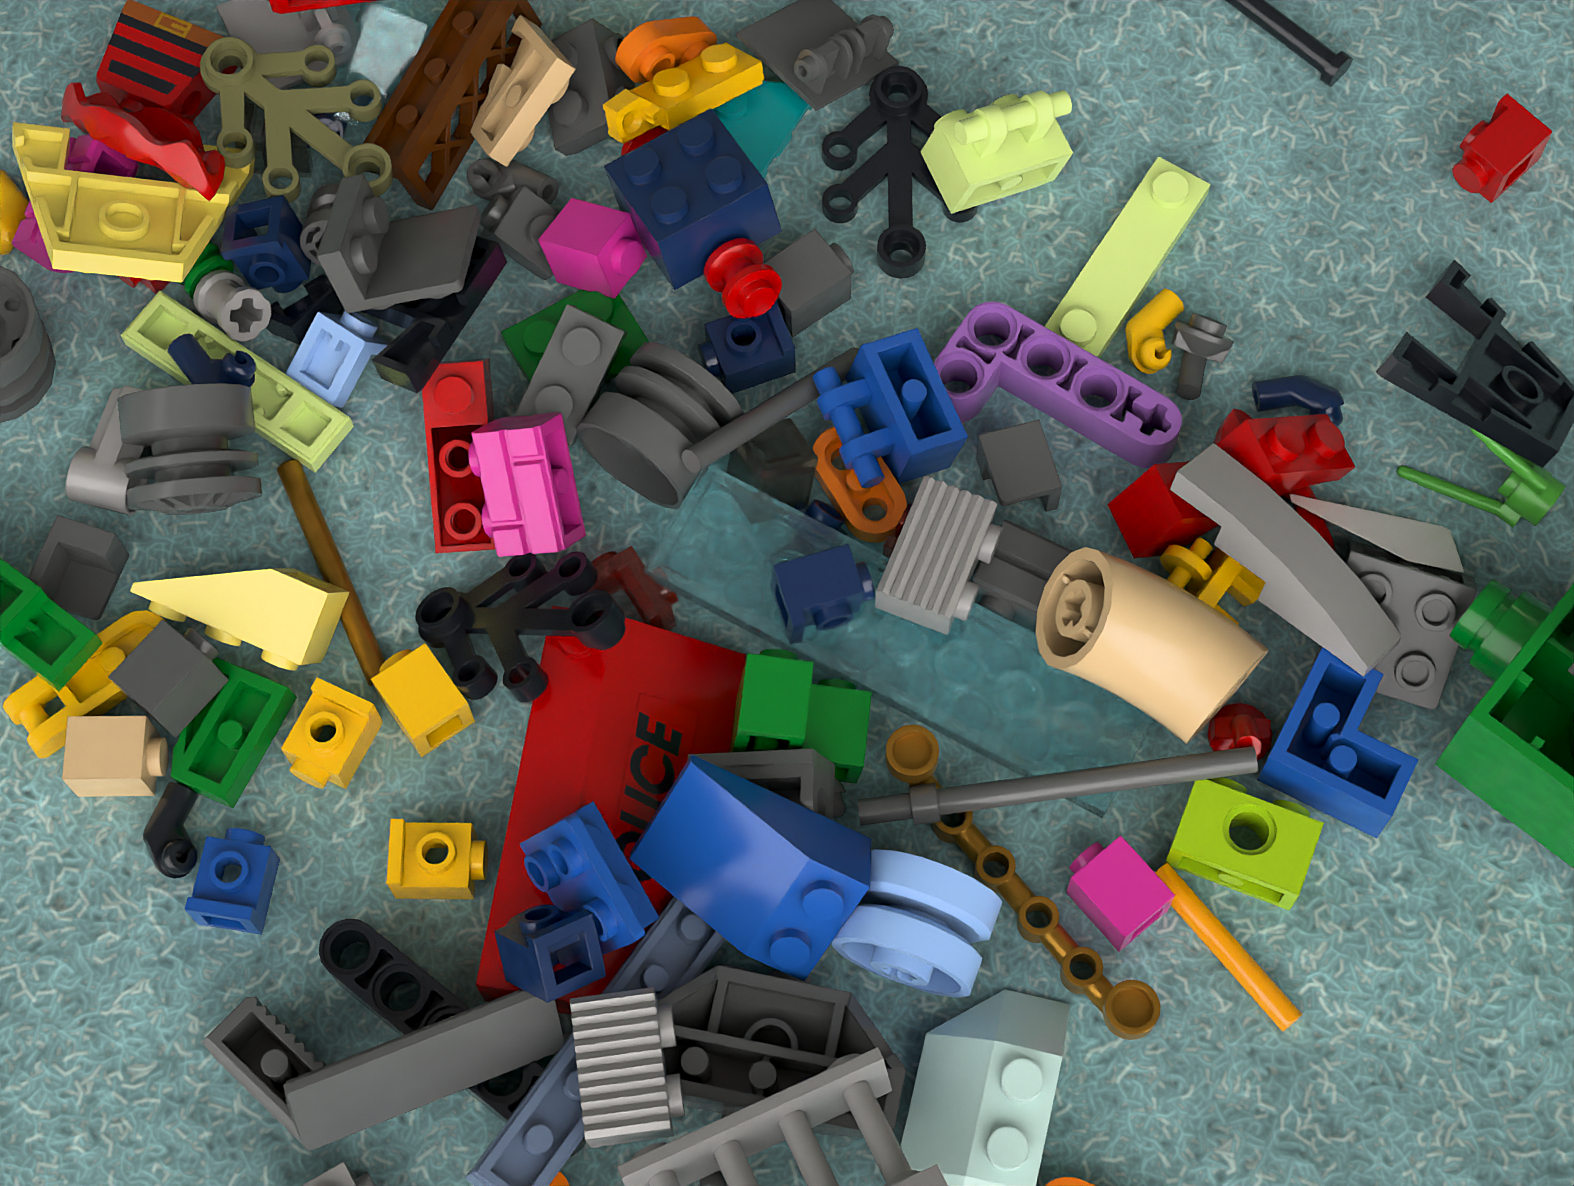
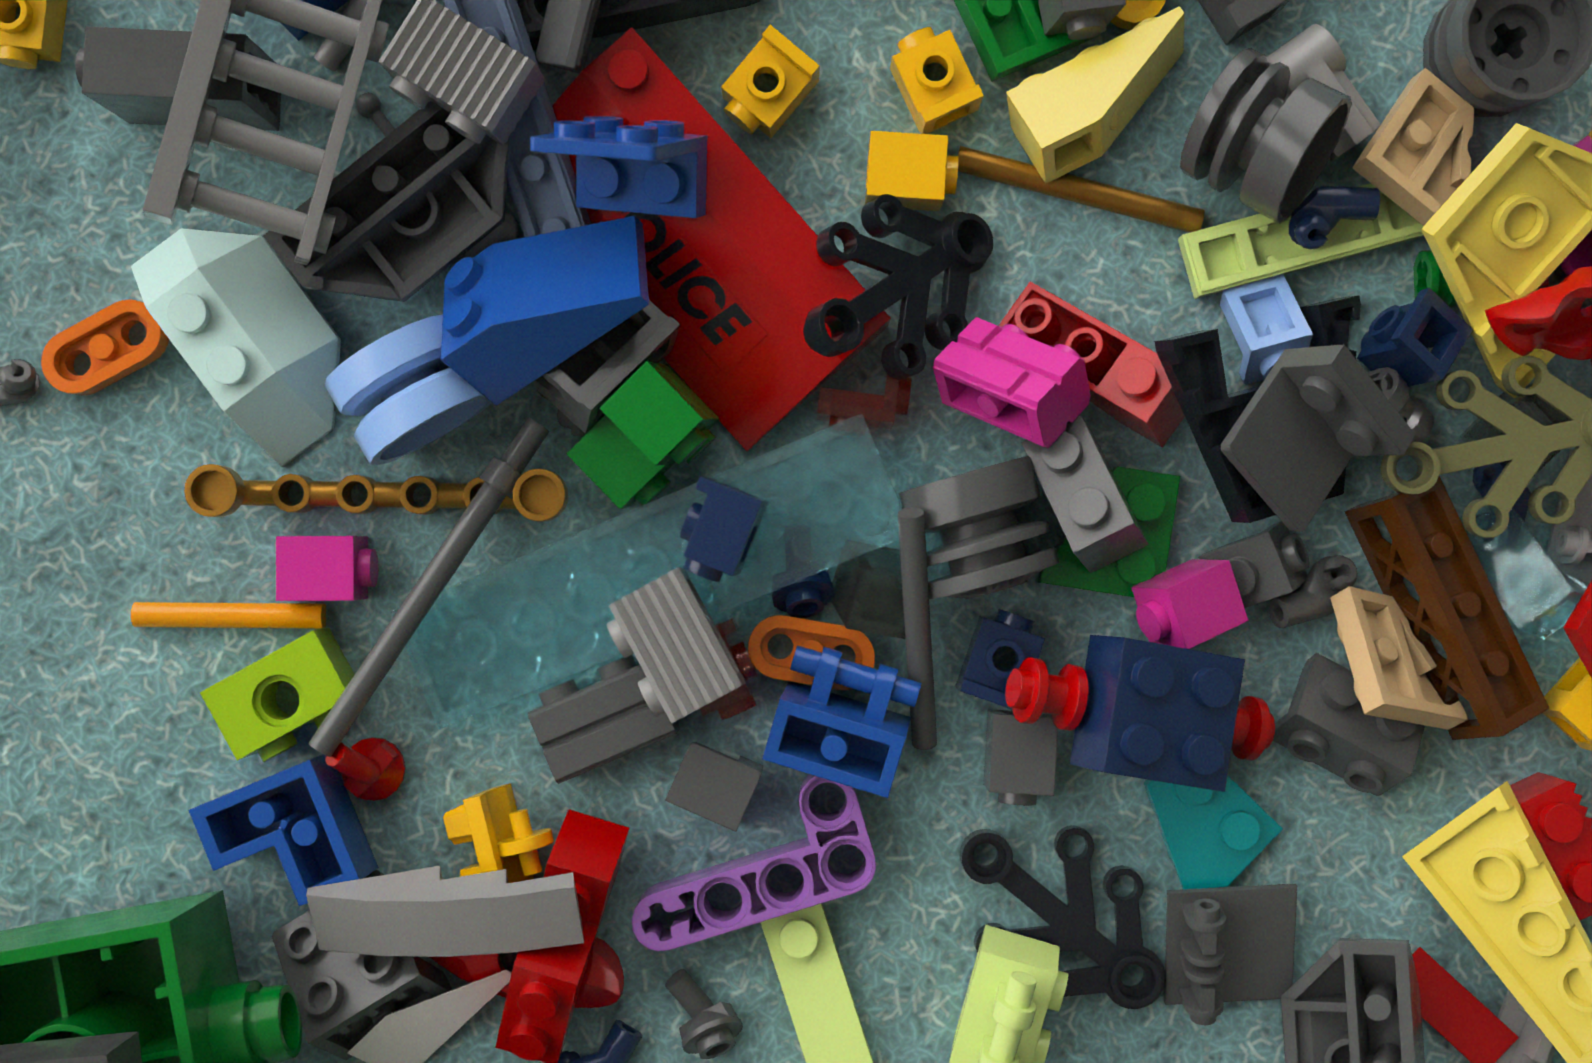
camera: 130 degrees right, 20 degrees up
(112, 343) = (1421, 147): none -> tan wing
(232, 305) = (1376, 281): light grey bush -> none
(545, 938) = (605, 81): dark blue brick -> none
(662, 46) = (1328, 815): orange plate -> none
(683, 92) = (1273, 794): yellow hinge -> none
(1143, 640) = (467, 742): tan brick -> none
(1145, 332) = (754, 990): yellow arm -> none

